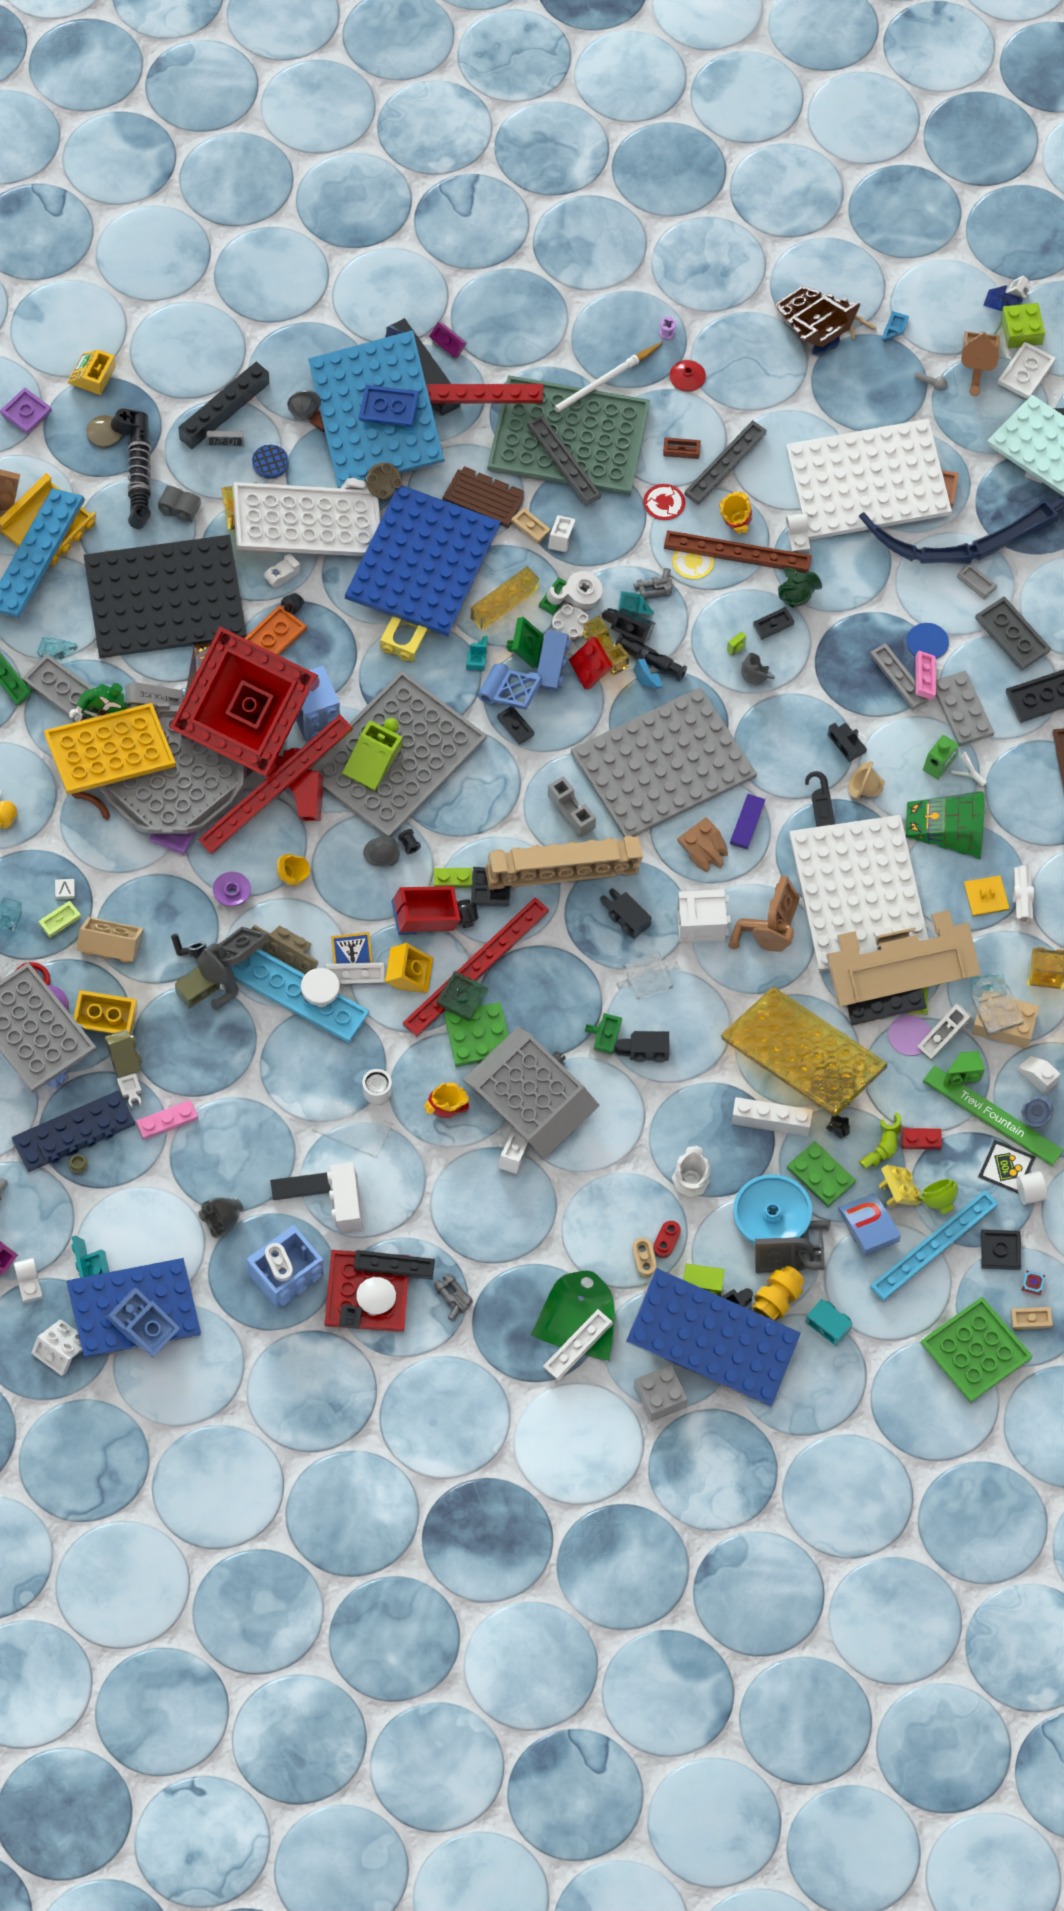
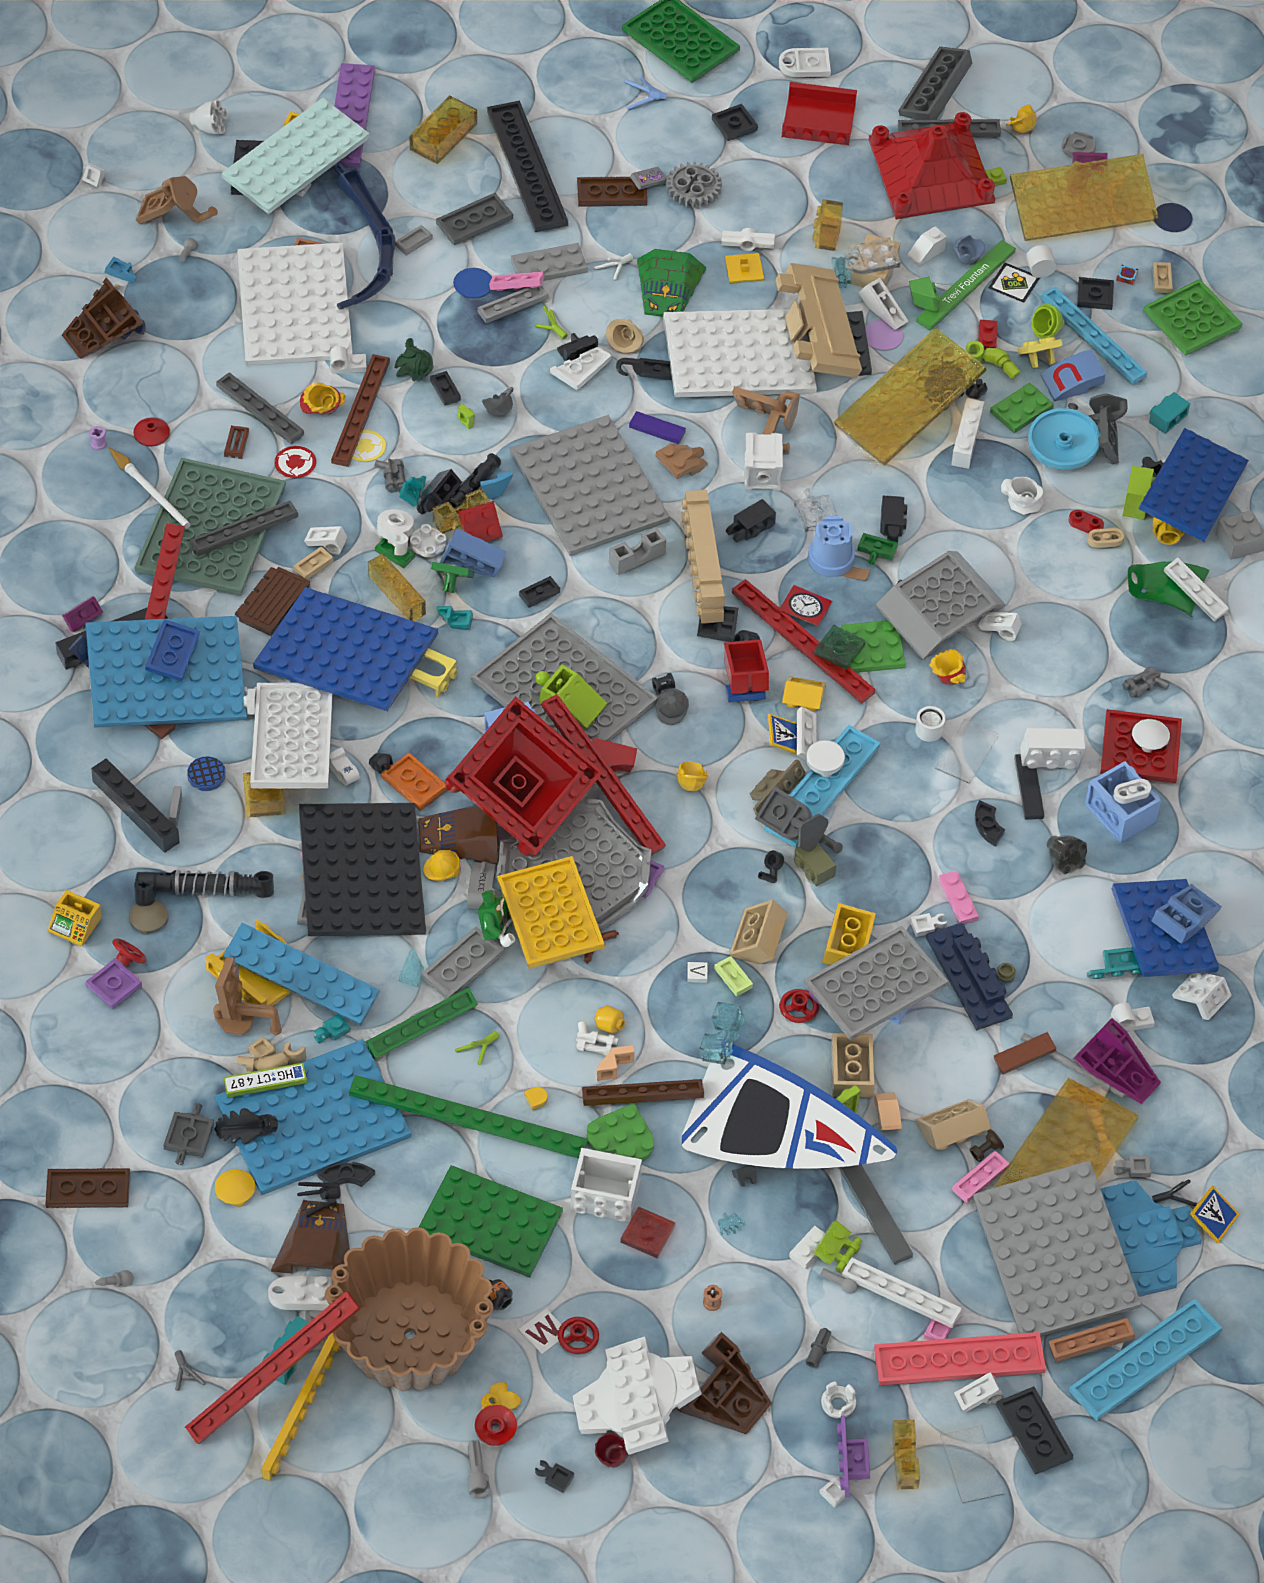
camera: 85 degrees left, 10 degrees down
(56, 417) = (128, 952): none -> red piece
(122, 1053) = (891, 917): olive brick -> none
(174, 665) = (442, 866): none -> yellow piece
(179, 503) = (250, 851): dark grey brick -> none
(231, 881) = (708, 822): medium lavender dish -> none
(263, 1144) = (986, 823): none -> black tile
(304, 404) = (150, 734): dark grey piece -> none
(350, 1316) = (1172, 756): black tile -> none
(383, 480) = (250, 671): dark tan dish -> none
(394, 1264) = (1118, 719): black tile -> none
(453, 877) = (703, 654): lime plate -> none
(498, 684) = (495, 602): medium blue piece -> none
(523, 968) = (805, 605): none -> sticker
(576, 1012) = (857, 573): none -> medium nougat sticker
(597, 997) = (832, 547): none -> light blue piece
(784, 1287) = (1139, 437): yellow piece -> none
(816, 745) = (582, 369): none -> white wing
(872, 718) = (555, 326): none -> lime plant
(944, 753) = (604, 278): bright green torso -> none
(998, 298) = (104, 189): clear blue slope -> none
(1022, 325) = (138, 174): lime brick -> none
(1026, 370) = (203, 180): white plate -> none

